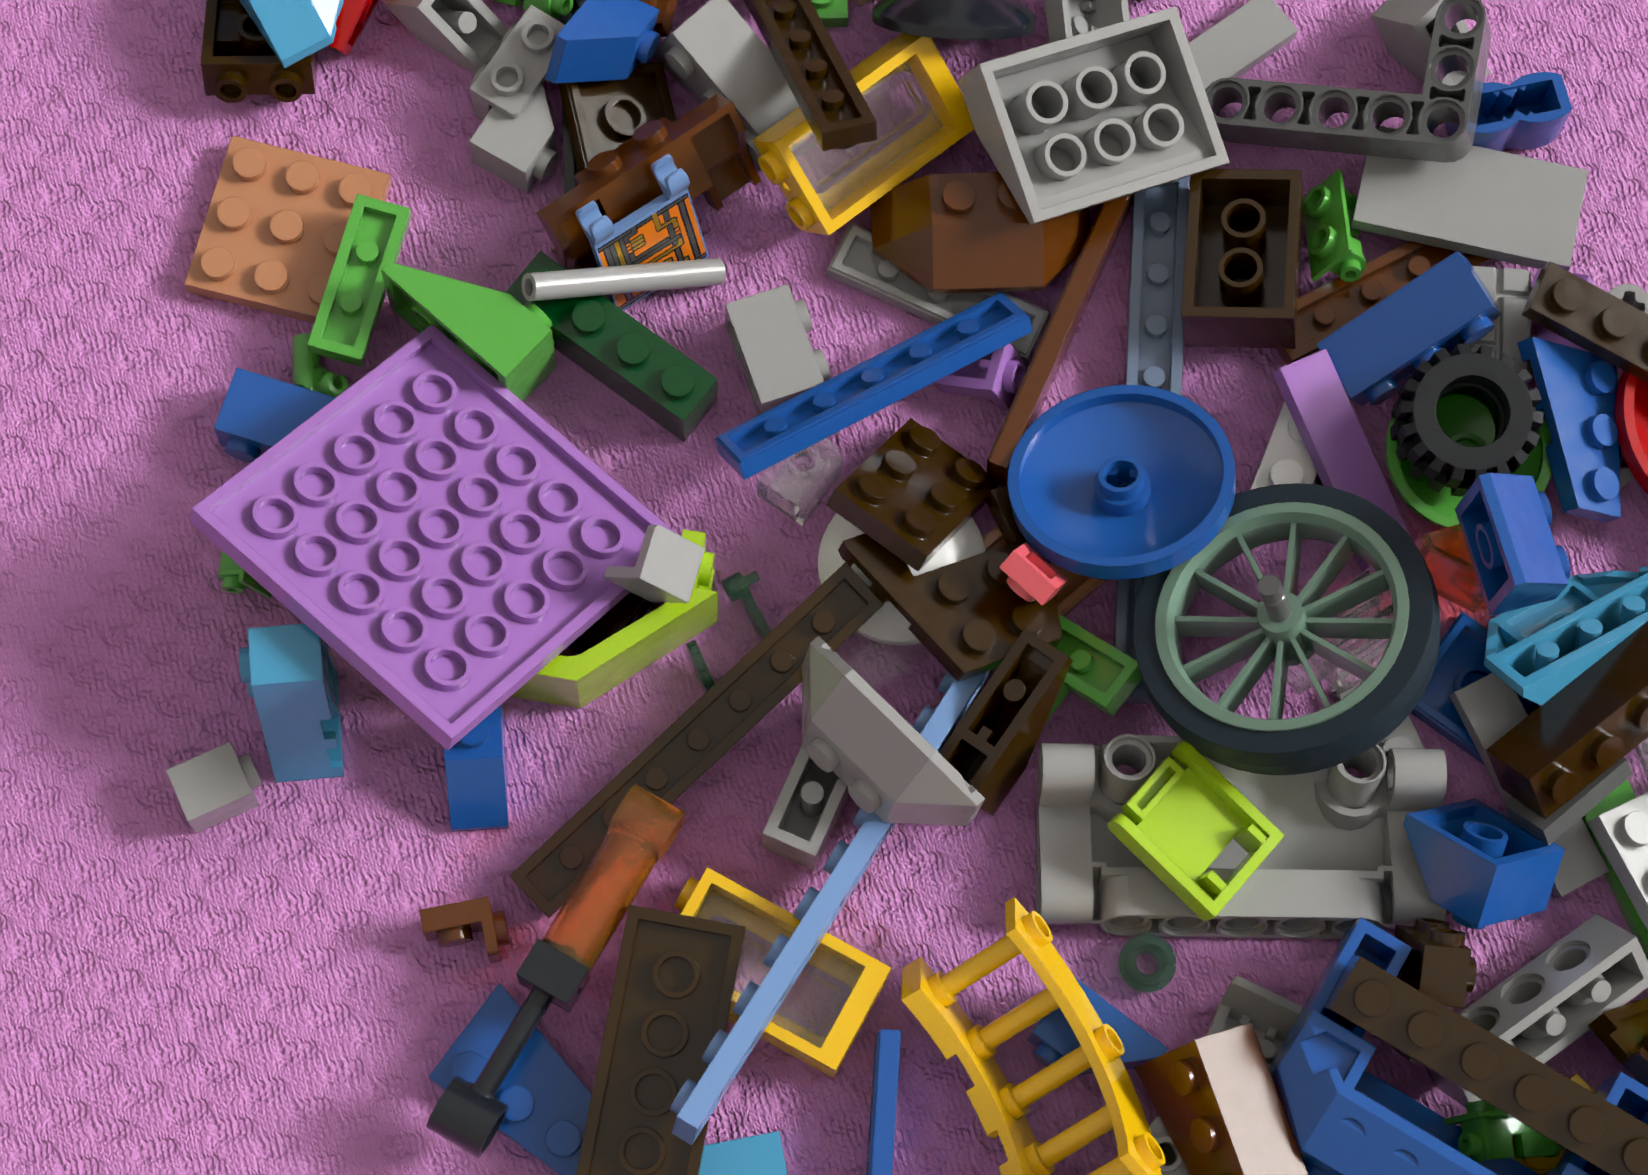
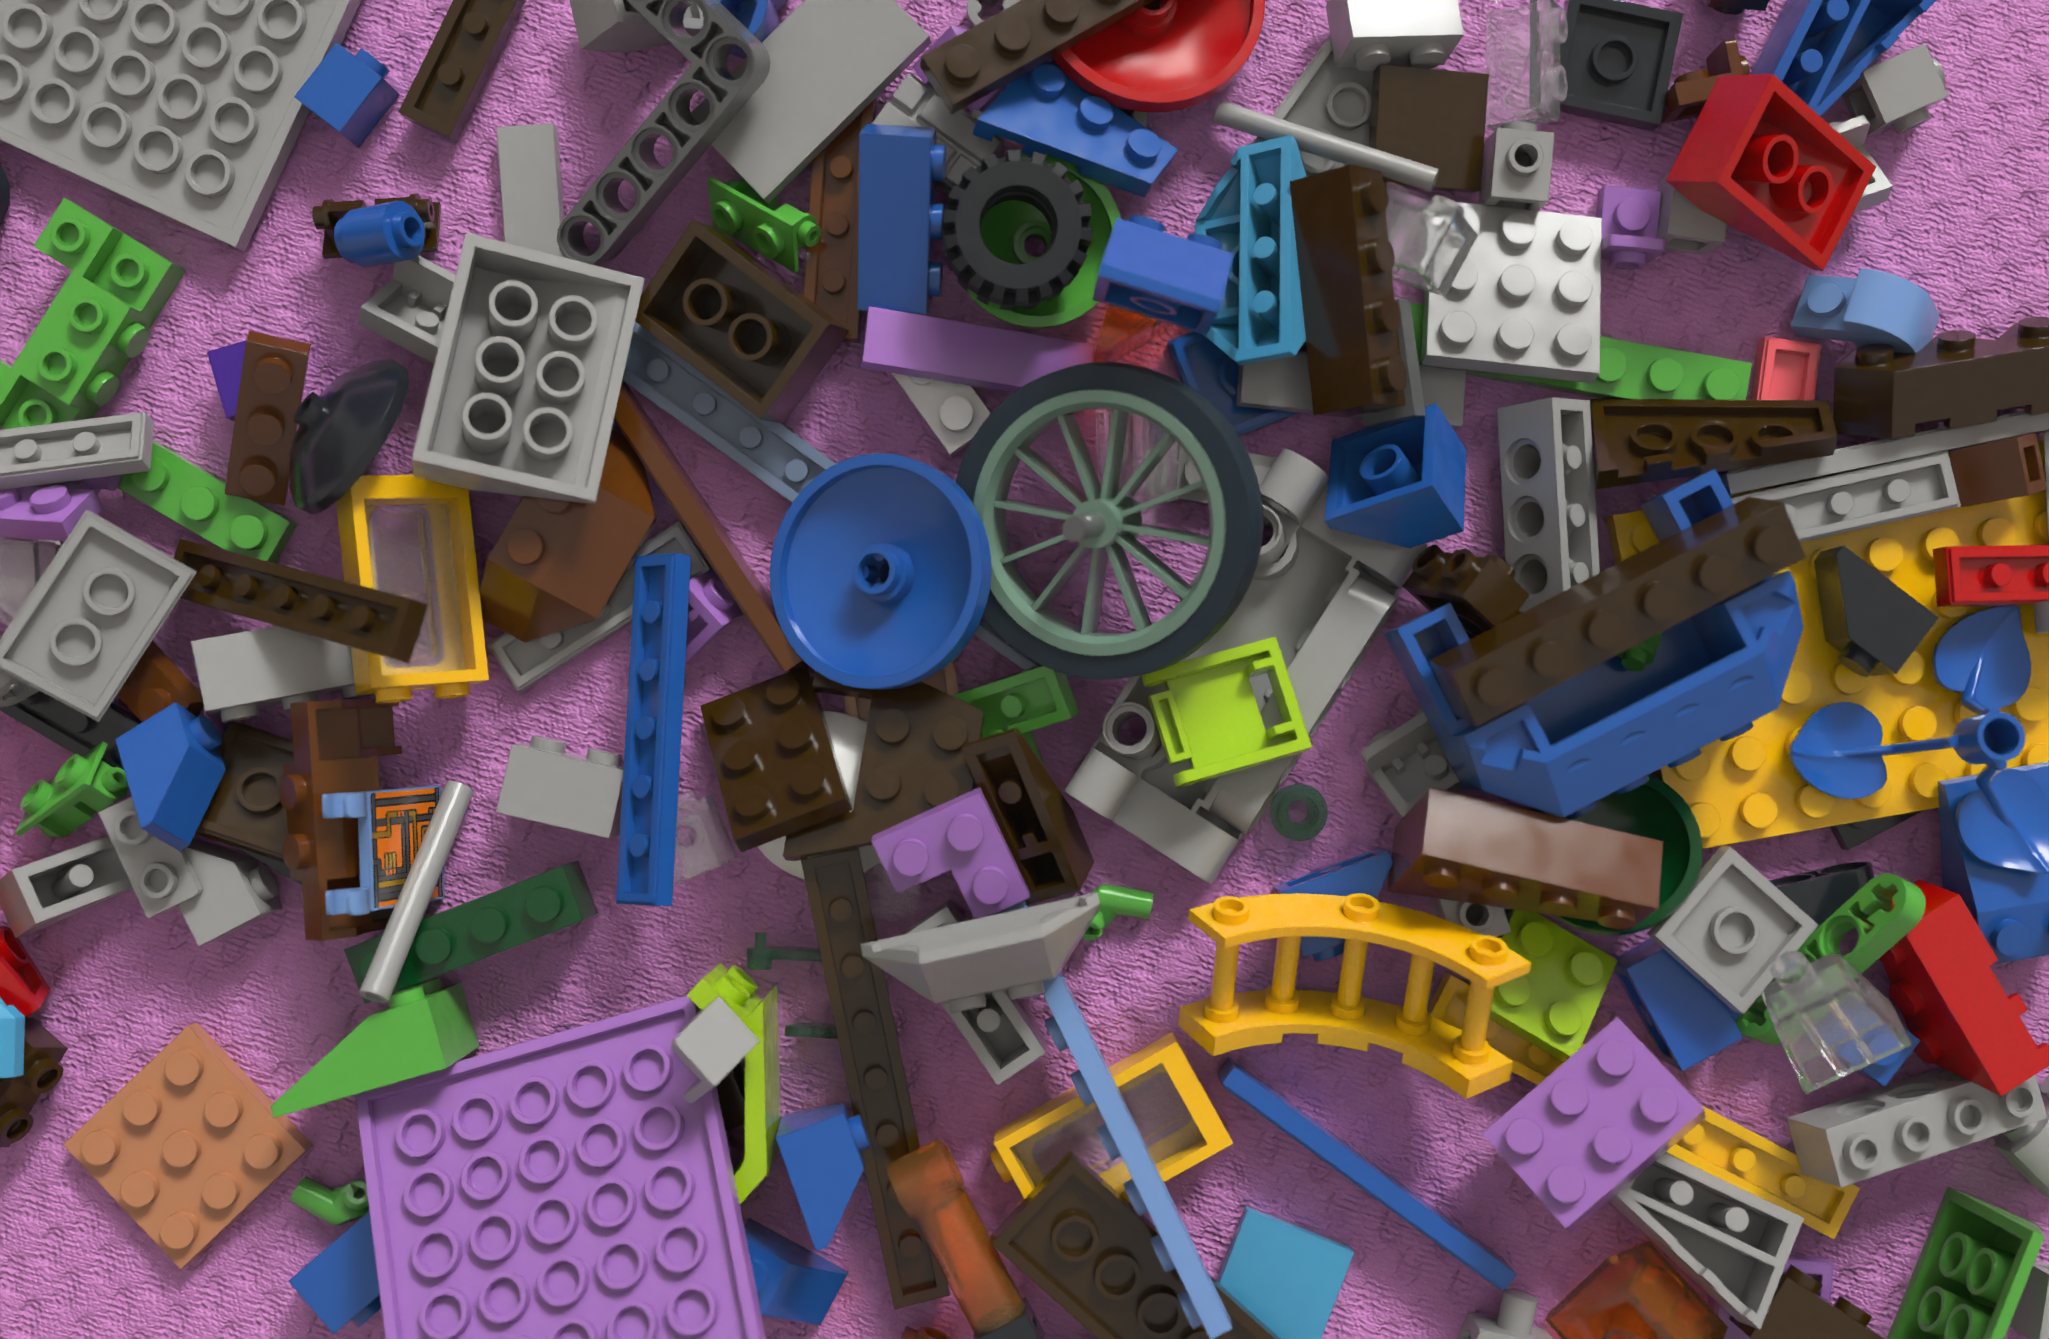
camera: 50 degrees left, 15 degrees up
(356, 282) = (289, 1145): bright green plate -> none
(603, 734) = (824, 1163): none -> blue slope
(950, 669) = (959, 839): none -> medium lavender plate
(962, 850) = (1118, 901): none -> bright green arm
(1032, 575) = (917, 709): coral plate -> none

